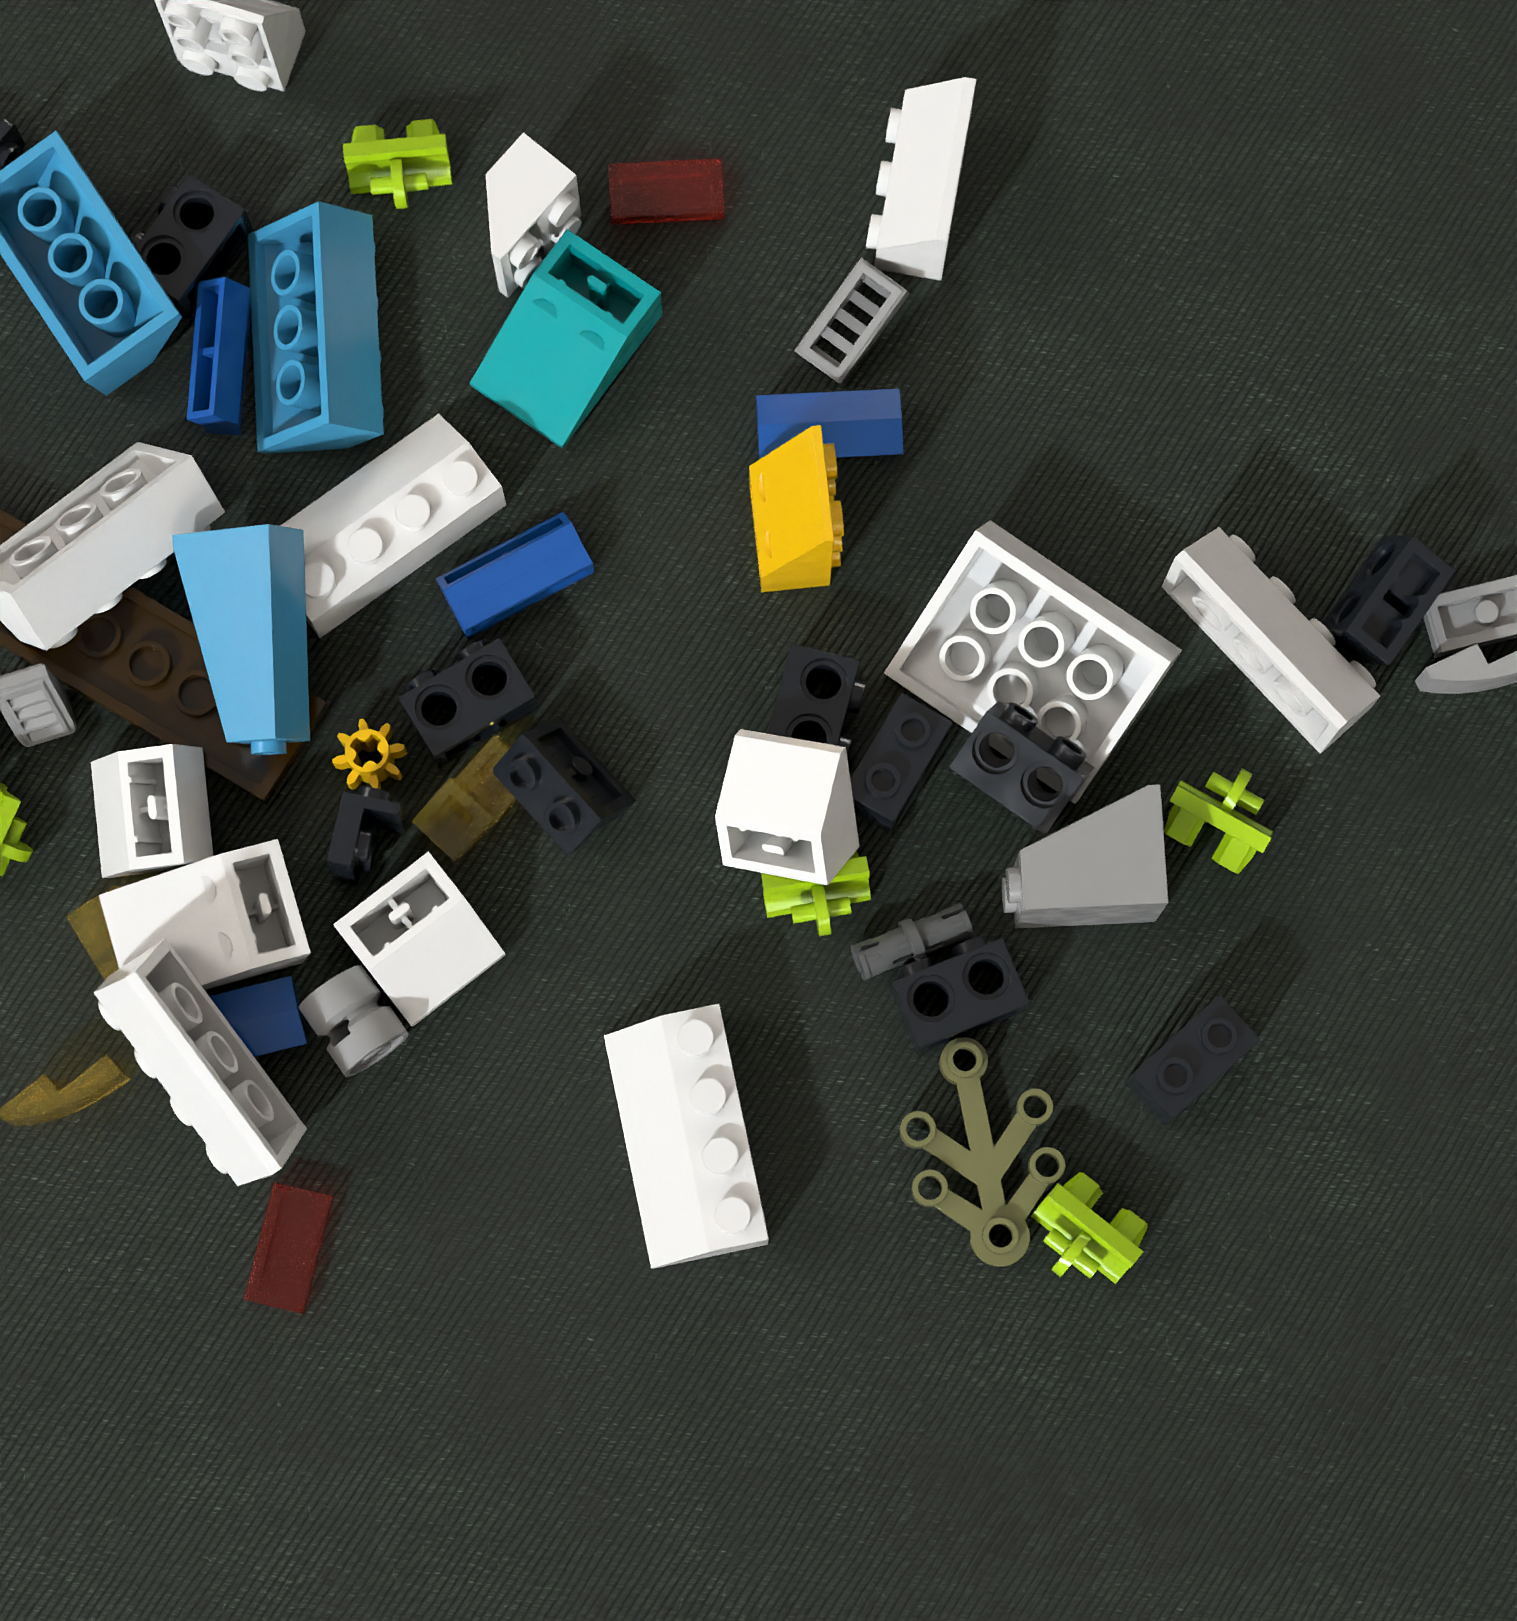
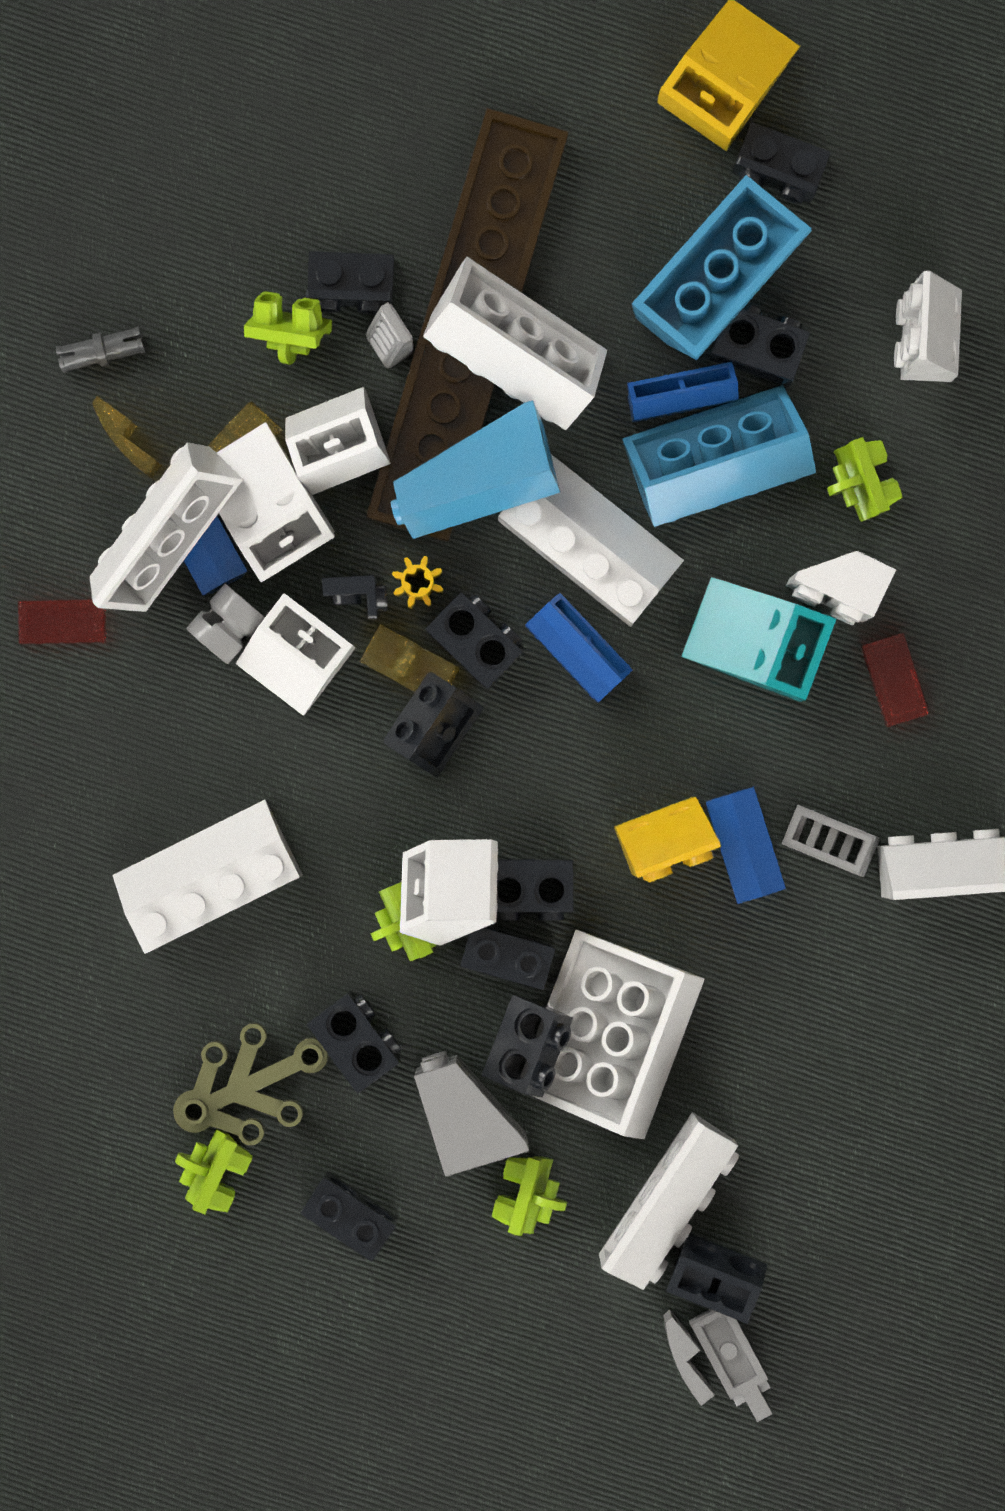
camera: 75 degrees right, 10 degrees up
(912, 941) = (385, 998): dark grey pin -> none

